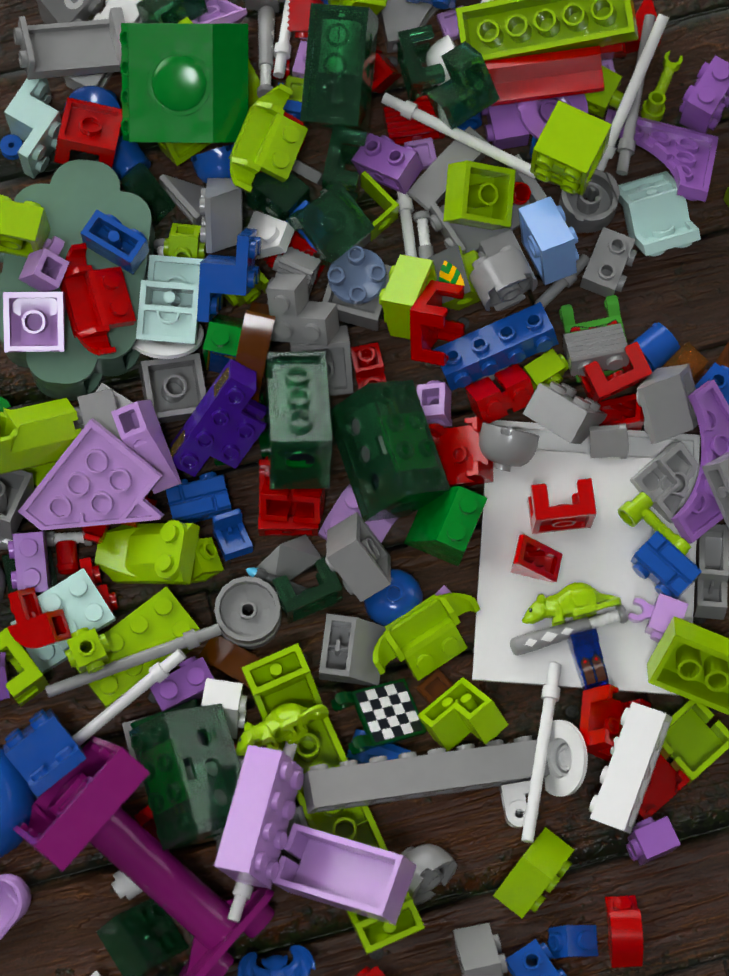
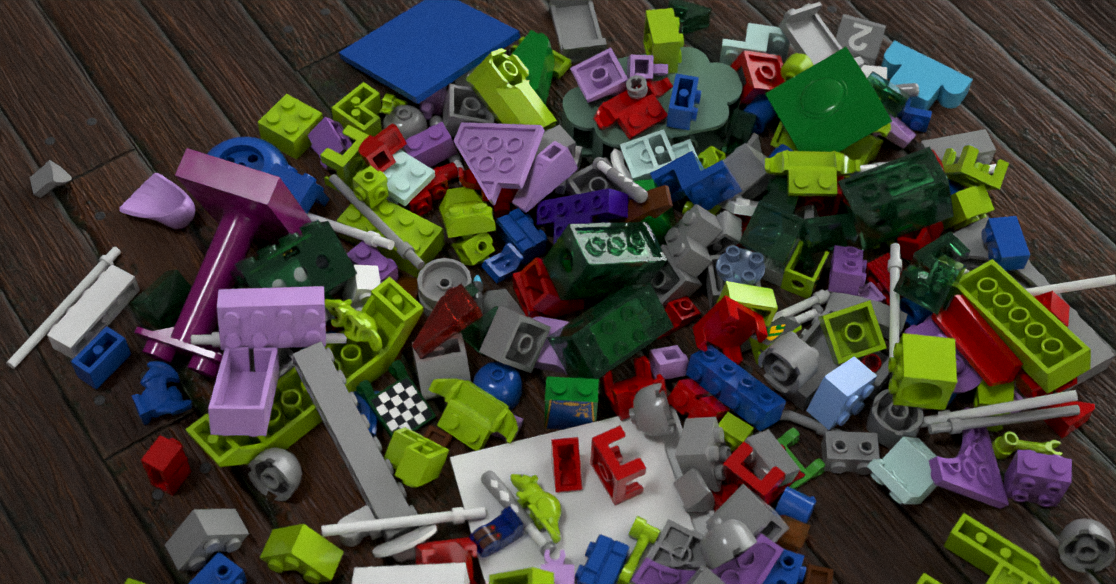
camera: 70 degrees right, 20 degrees down
(80, 277) = (635, 81): none -> light grey bush
(101, 88) = (794, 65): none -> lime head
(216, 355) = (631, 188): none -> light grey piece
(316, 615) = (449, 317): none -> clear red slope
(698, 433) = (724, 541): none -> light grey cylinder

